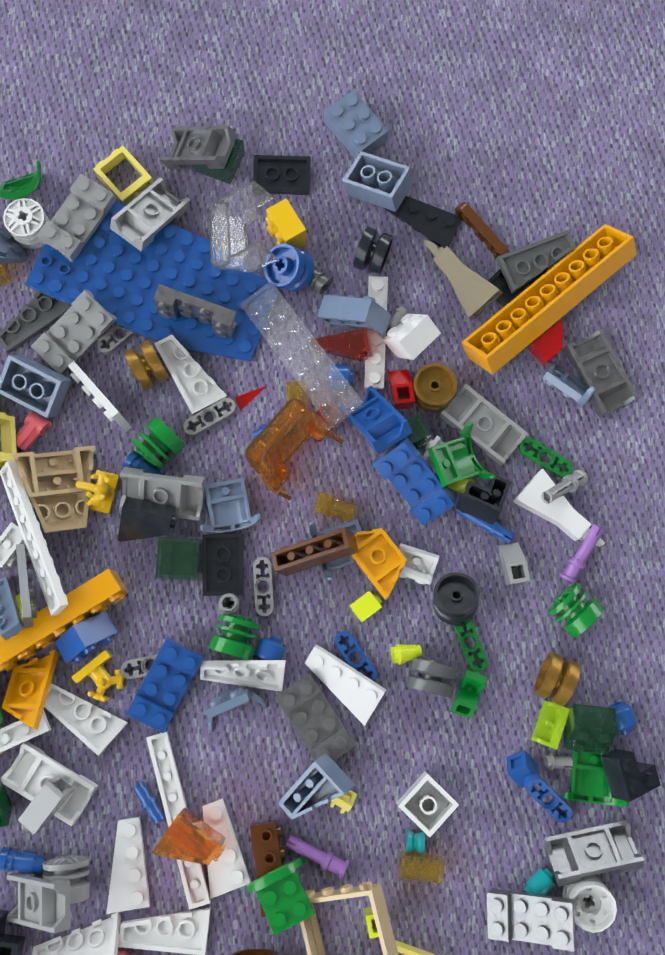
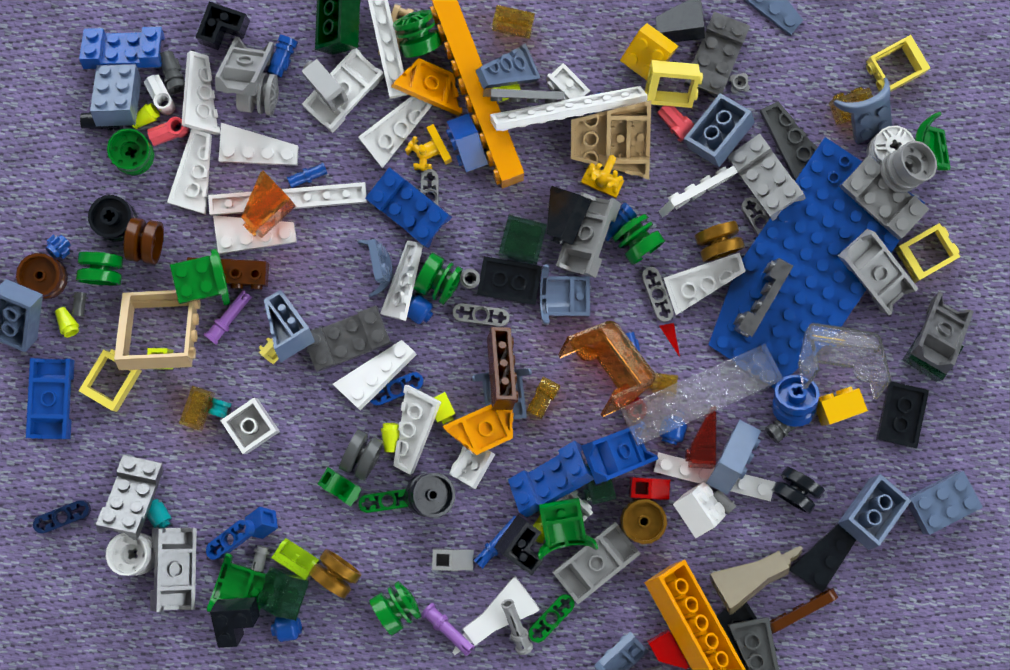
camera: 105 degrees right, 5 degrees up
(41, 195) = (908, 166): none -> light grey wheel
(388, 628) = (416, 422): none -> white wing

